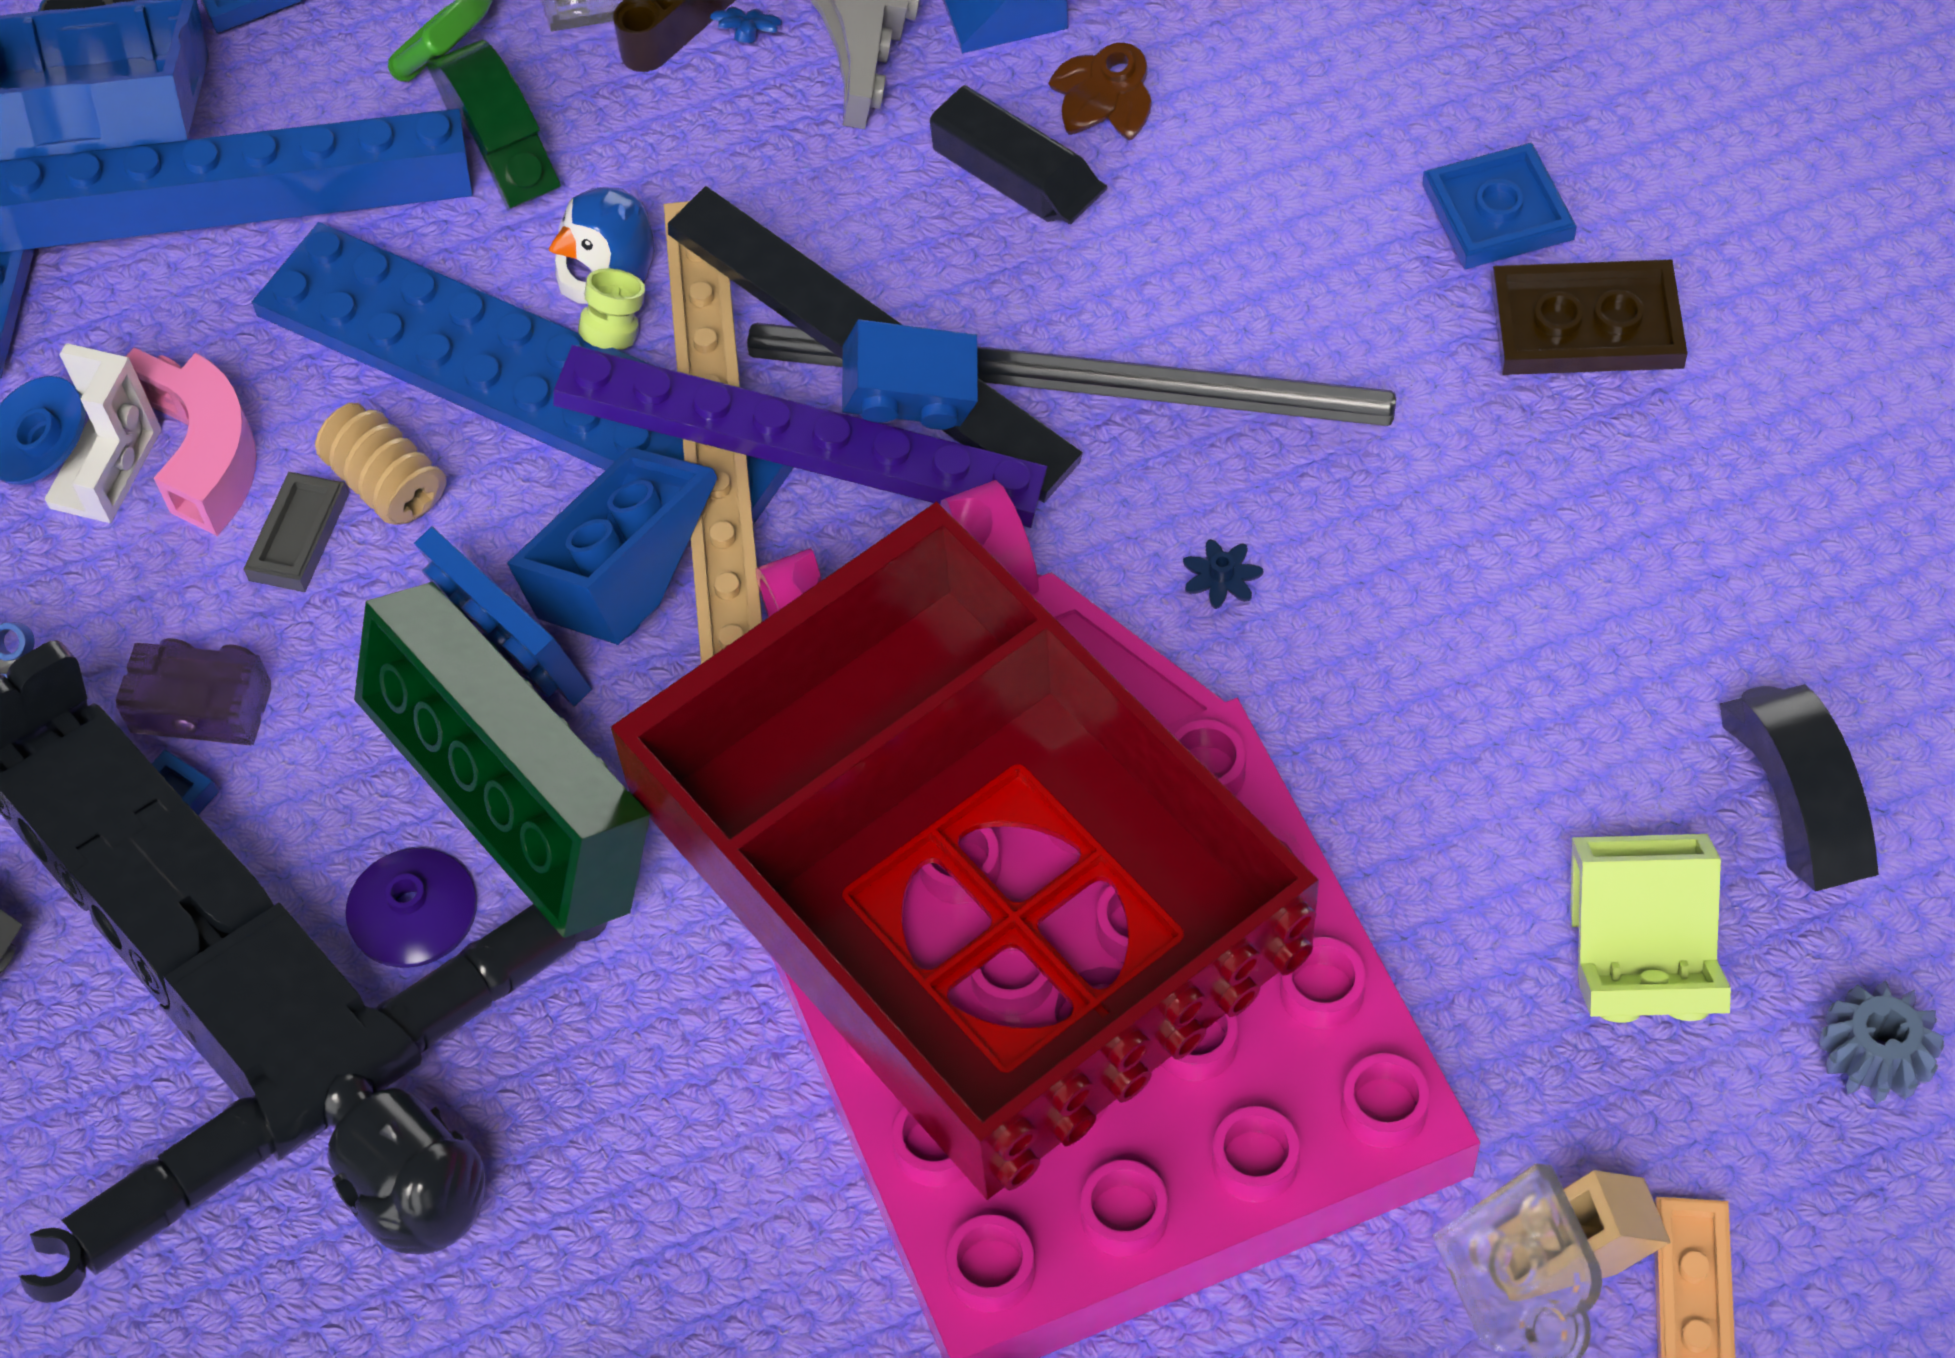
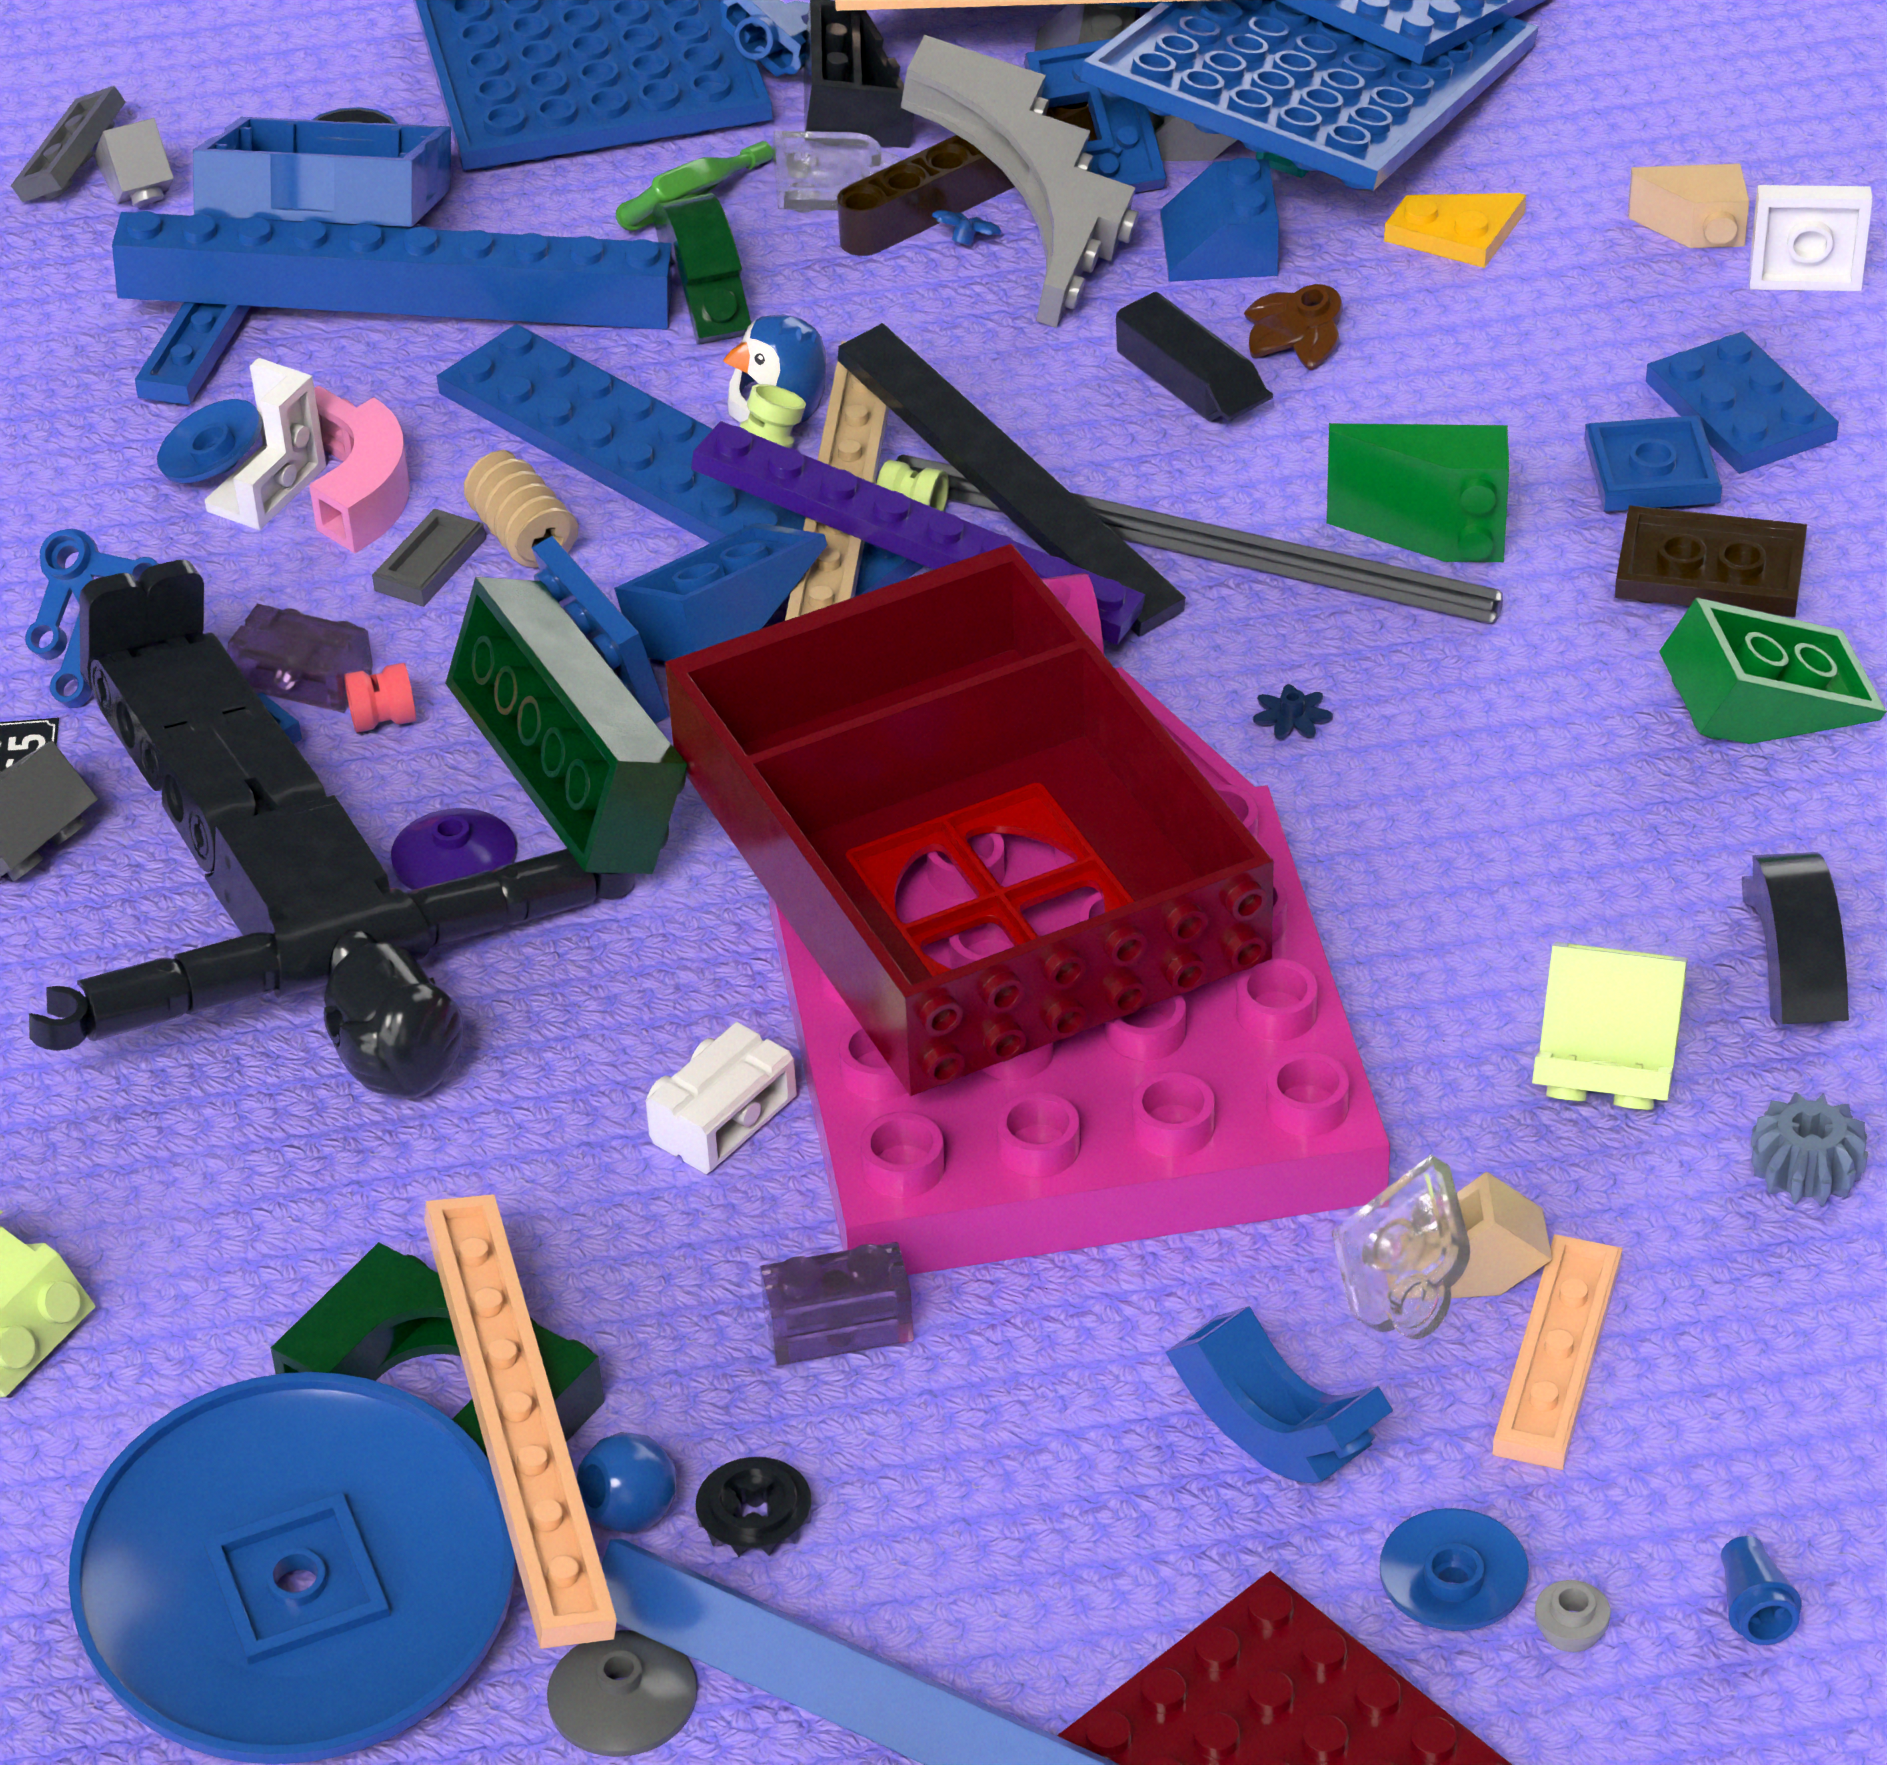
camera: 10 degrees right, 15 degrees down
(304, 728) = (380, 697): none -> coral wheel
(768, 1189) = (720, 1097): none -> white brick
(775, 370) = (926, 487): none -> yellowish green wheel
(909, 374) = (1031, 492): blue brick -> none
(1294, 286) = (1422, 487): none -> green slope
(1565, 108) = (1744, 401): none -> blue plate
(1681, 452) = (1765, 675): none -> green slope

